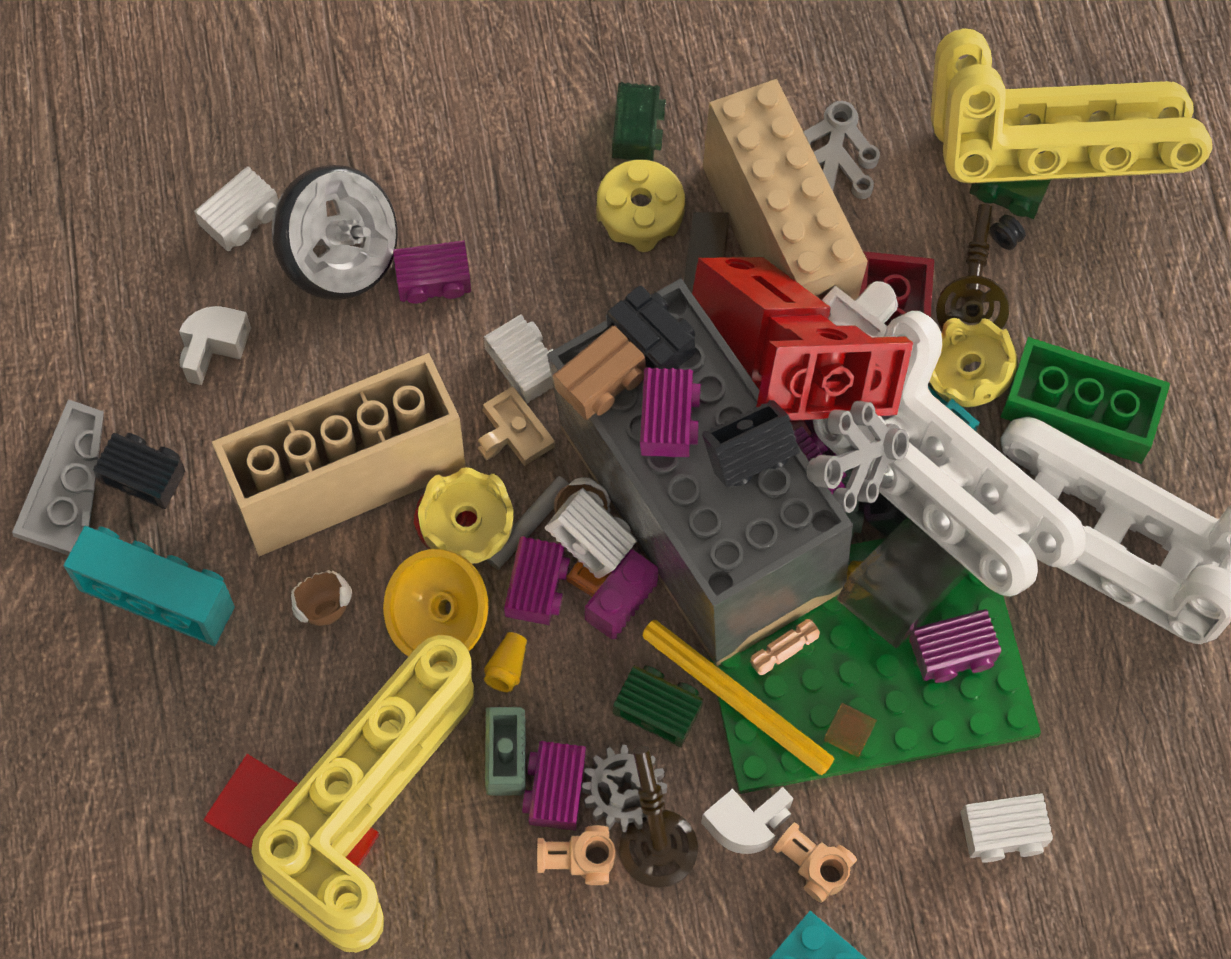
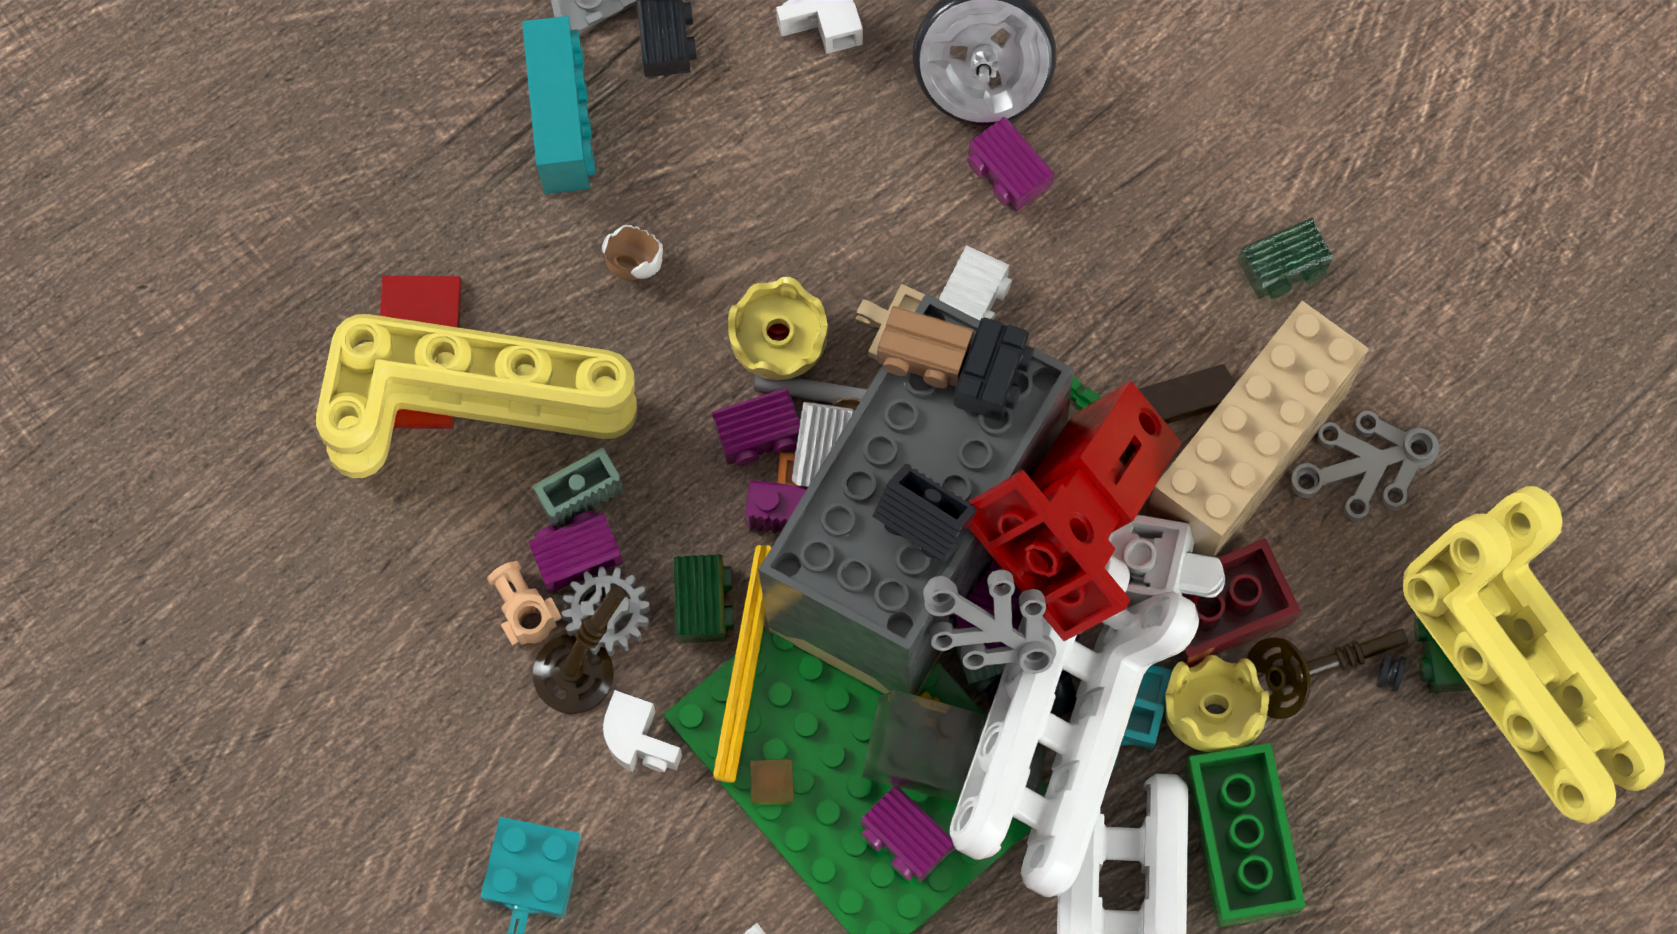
camera: 65 degrees right, 5 degrees up
(342, 454) = (759, 185): tan brick -> none
(418, 599) = (679, 352): yellow dish -> none
(506, 663) = (666, 445): yellow cone -> none
(640, 224) = (1191, 334): light yellow plate -> none
(667, 412) = (919, 427): magenta brick -> none
(784, 647) = (818, 680): light nougat axle -> none
(812, 858) = (631, 815): light nougat connector -> none

